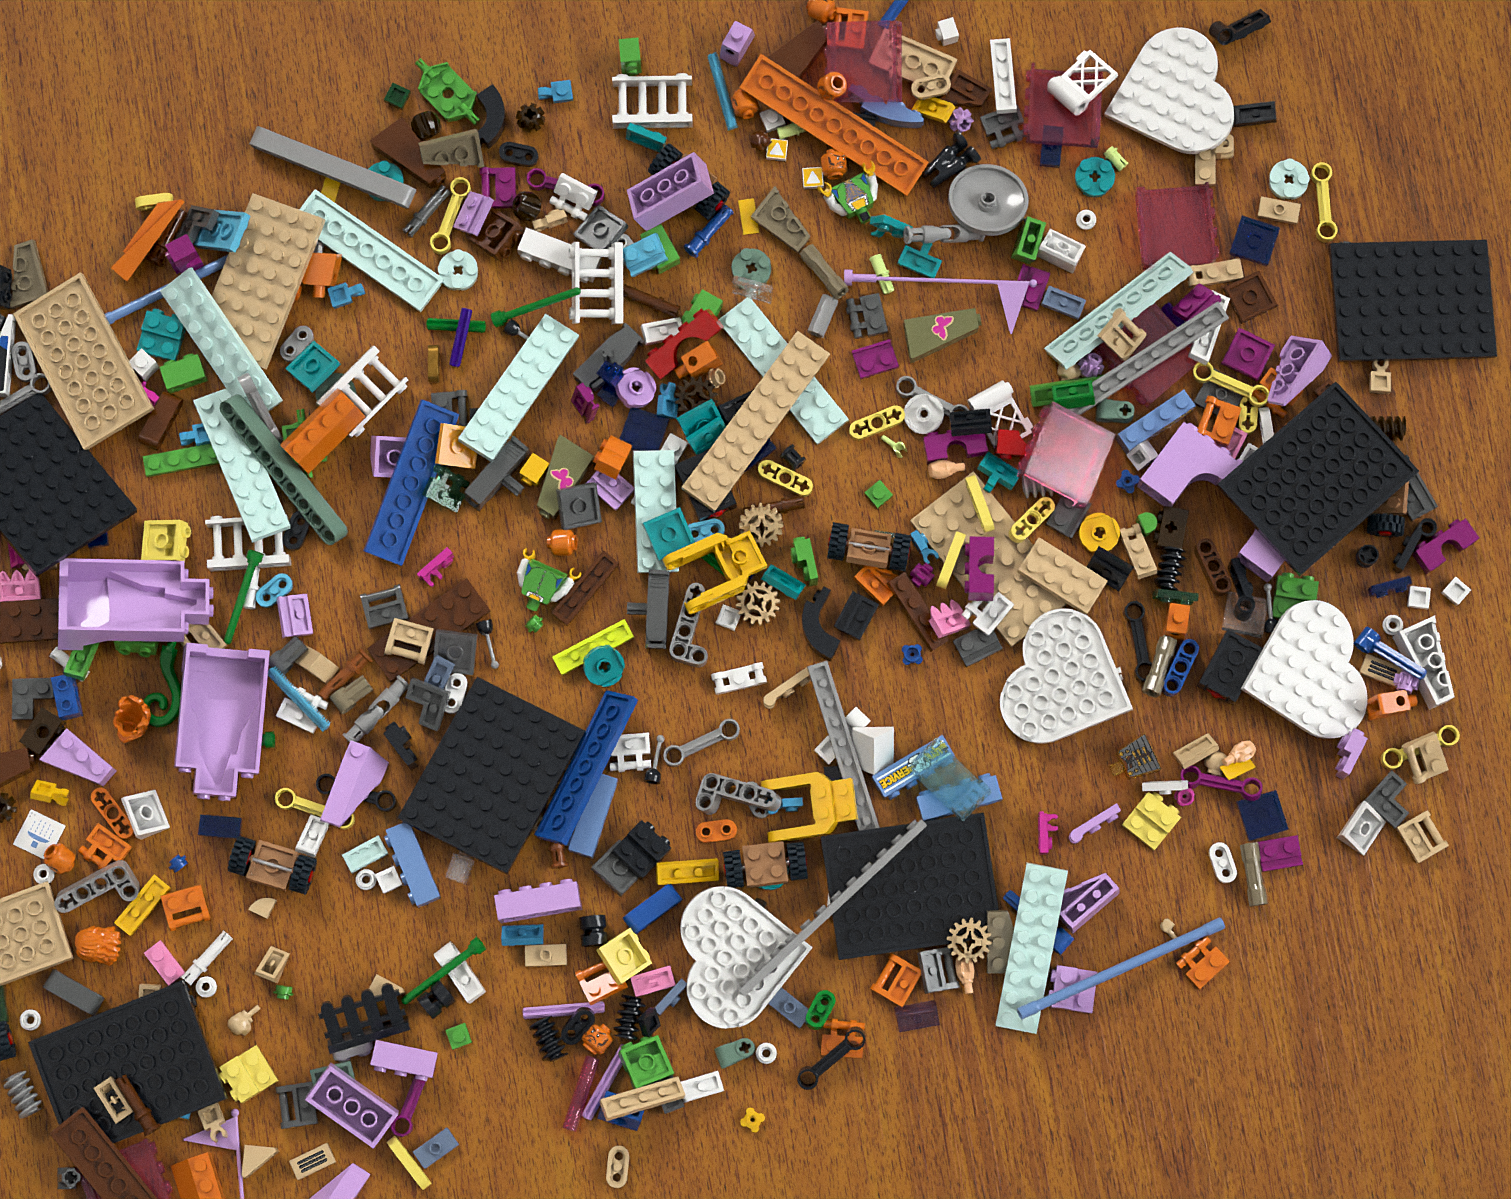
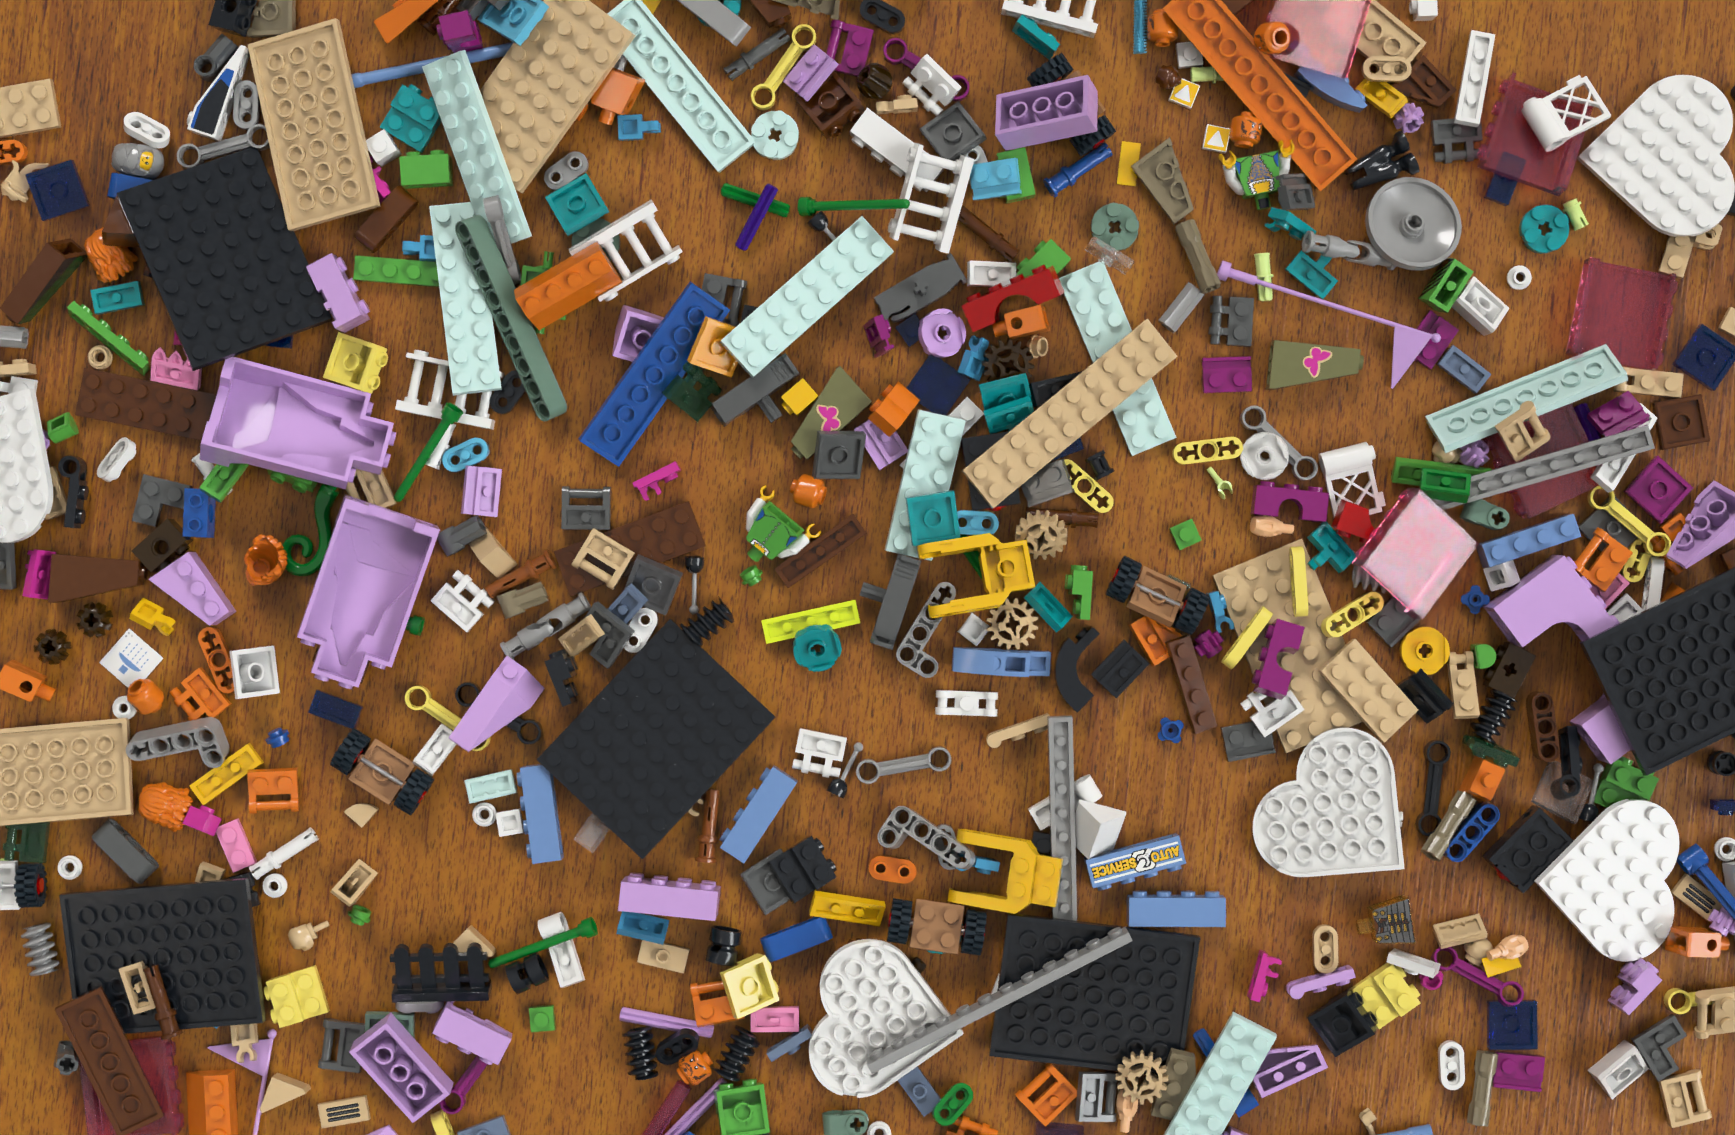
camera: 15 degrees right, 10 degrees up
(132, 947) = (202, 819): none -> dark pink plate
(137, 488) = (338, 292): none -> lavender wedge
(298, 699) = (461, 592): medium azure axle -> none
(408, 708) = (581, 635): none -> tan plate
(433, 363) = (717, 239): pearl gold beam -> none
(508, 670) = (708, 622): none -> black piece
(586, 767) = (765, 761): blue plate -> none
(611, 373) = (918, 311): clear blue plate -> none
(649, 1022) = (757, 1067): black plate -> none
(754, 483) = (1048, 483): none -> dark grey plate
(757, 635) = (1001, 662): none -> medium blue slope
(887, 201) = (1295, 192): none -> dark grey plate
(948, 619) = (1223, 704): bright pink plate -> none
(949, 779) = (1171, 890): clear light blue plate -> none
(970, 422) = (1316, 484): black plate -> none
(1091, 796) = (1325, 948): none -> tan plate
(1123, 851) = (1343, 1022): none -> black plate

